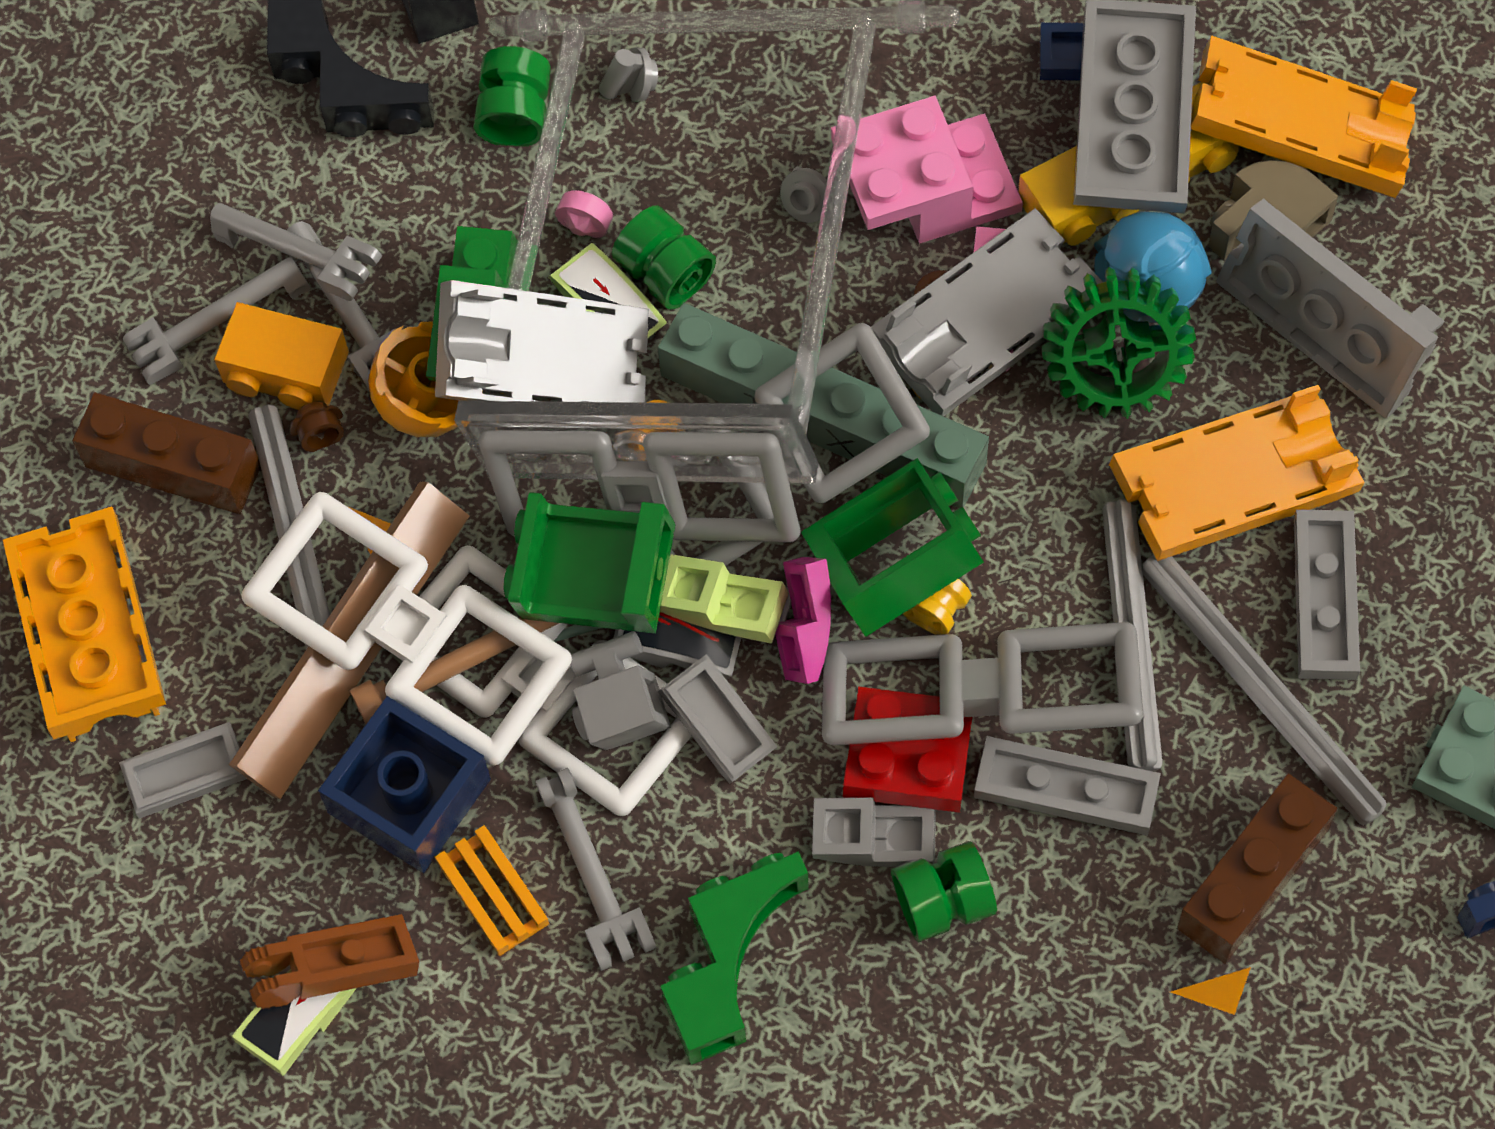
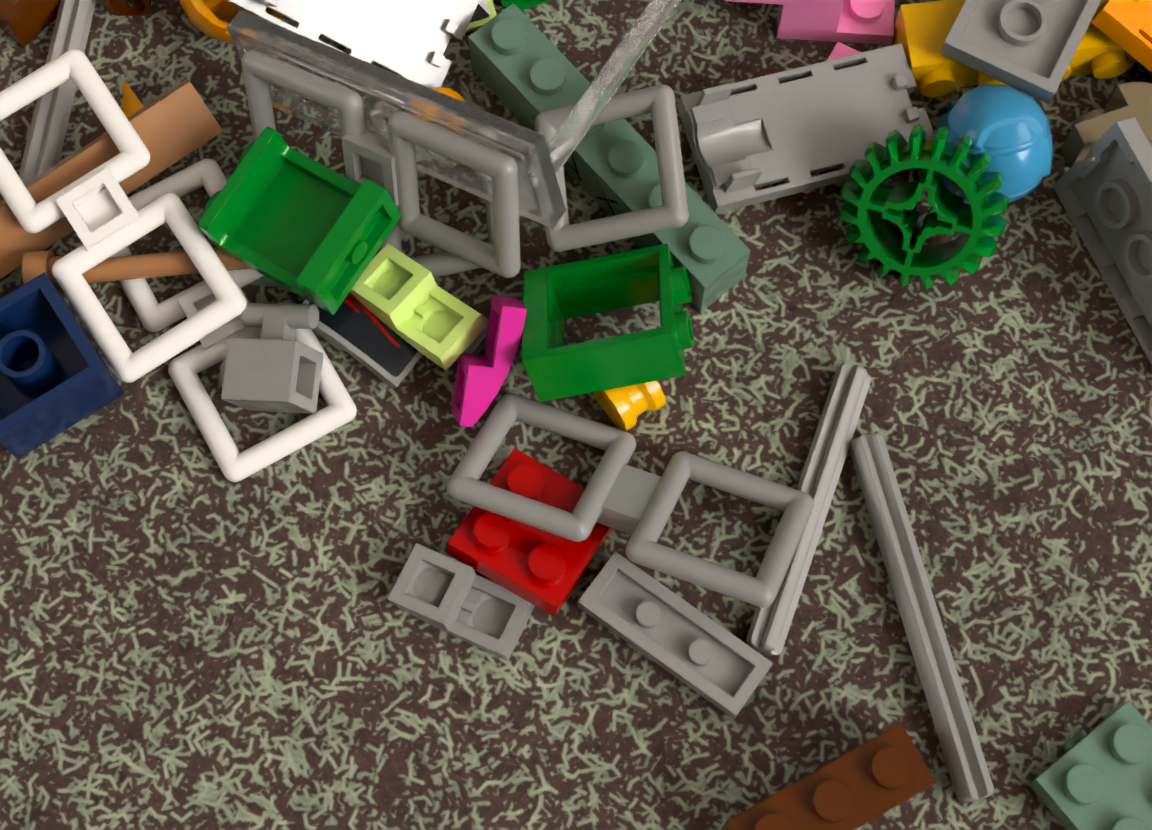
camera: 20 degrees right, 5 degrees up
(466, 851) = (65, 454): light orange tile -> none
(614, 925) = (171, 588): light grey hinge -> none
(717, 719) = (361, 424): light grey tile -> none
(727, 918) = (214, 706): green arch -> none
(944, 891) = (475, 686): green wheel -> none
(1236, 470) = (990, 383): light orange piece -> none
(1326, 595) = (1026, 547): light grey plate -> none

